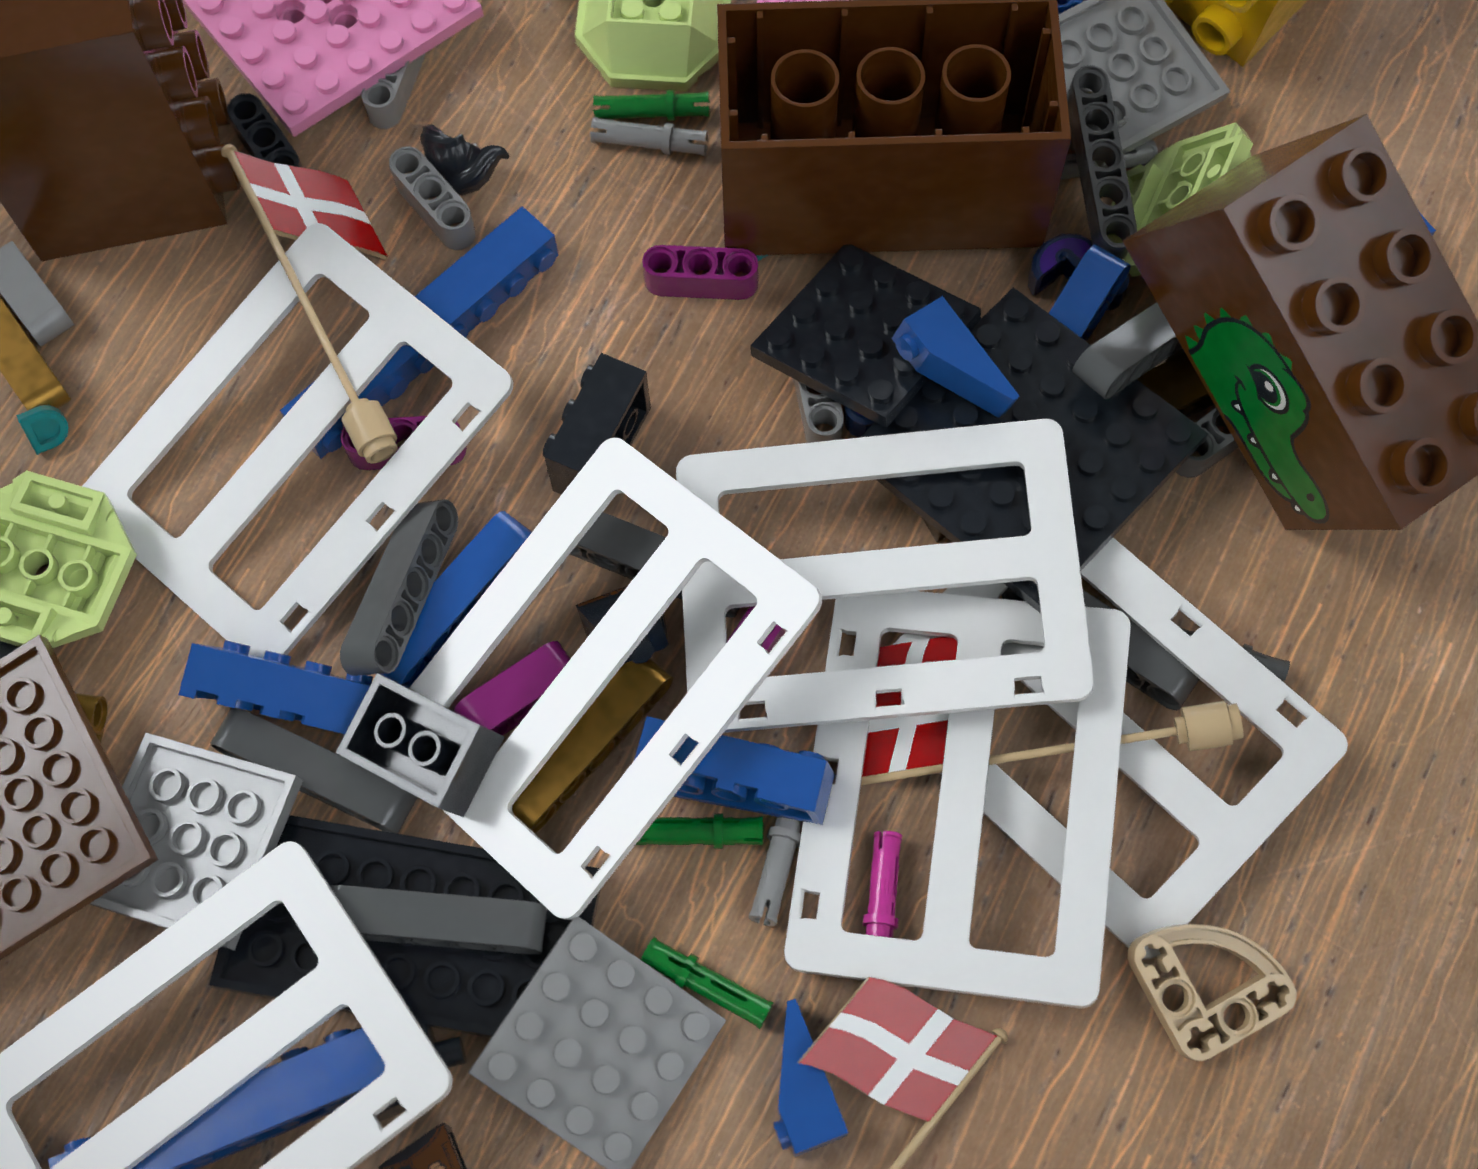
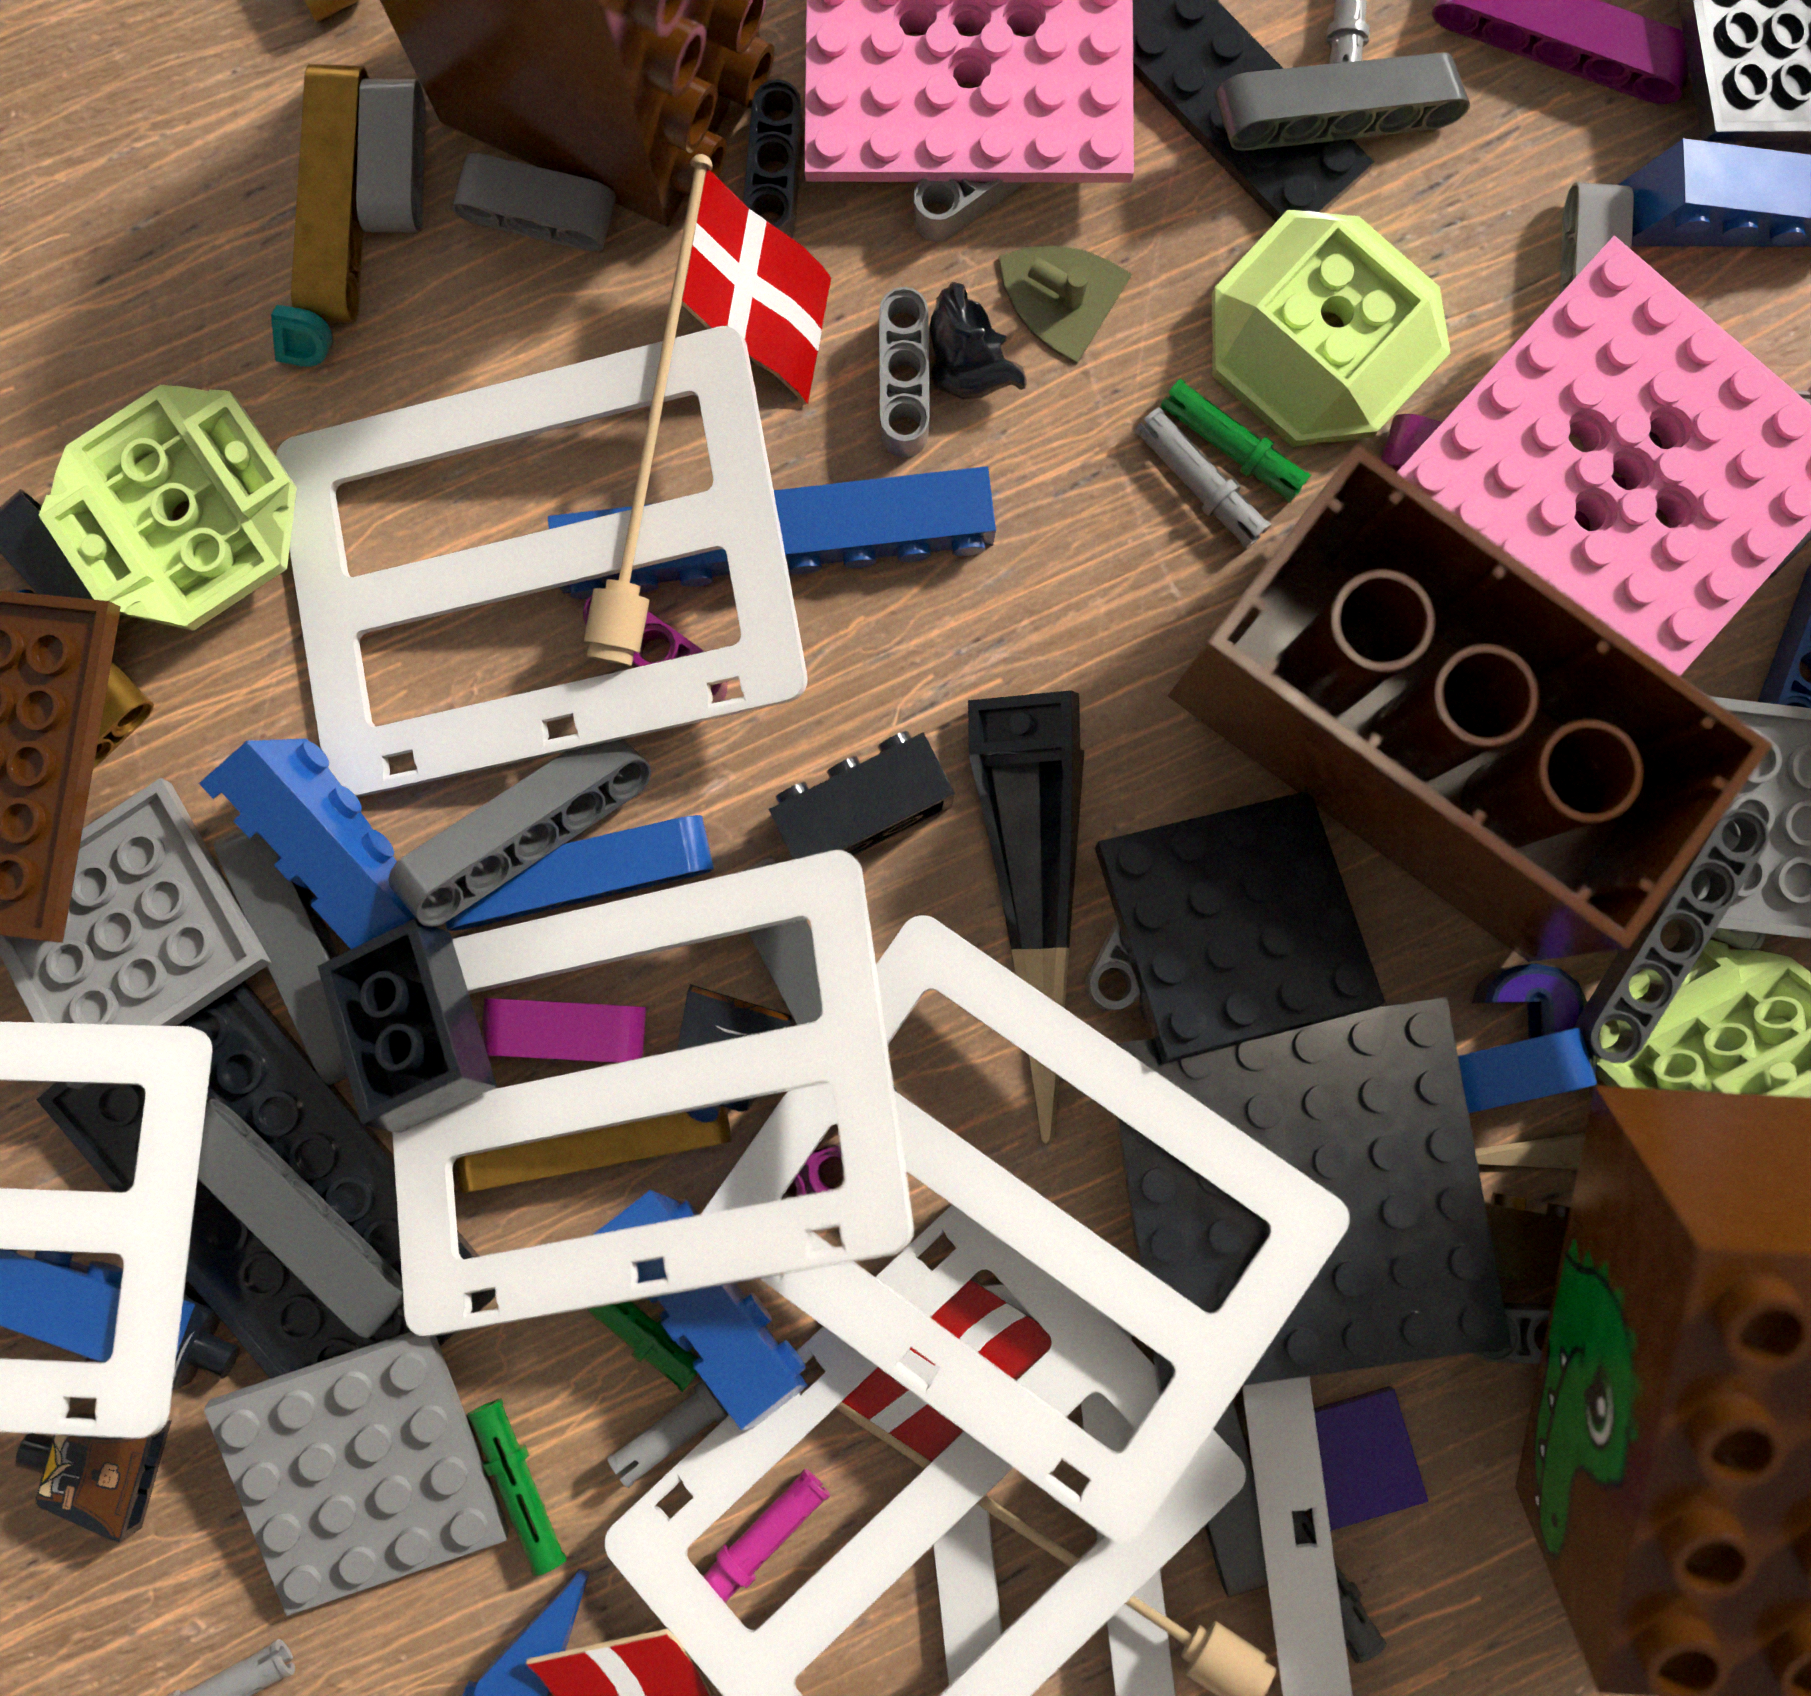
camera: 35 degrees right, 15 degrees up
(135, 259) = (534, 202): none -> light grey beam
(490, 103) = (1062, 294): none -> olive shield
(685, 260) = (1118, 667): magenta beam -> none
(693, 363) = (1030, 799): none -> black plate
(951, 356) = (1294, 1036): blue slope -> none
(1127, 352) = (1497, 1192): dark grey beam -> none
(1193, 571) = (1366, 1458): none -> dark purple tile

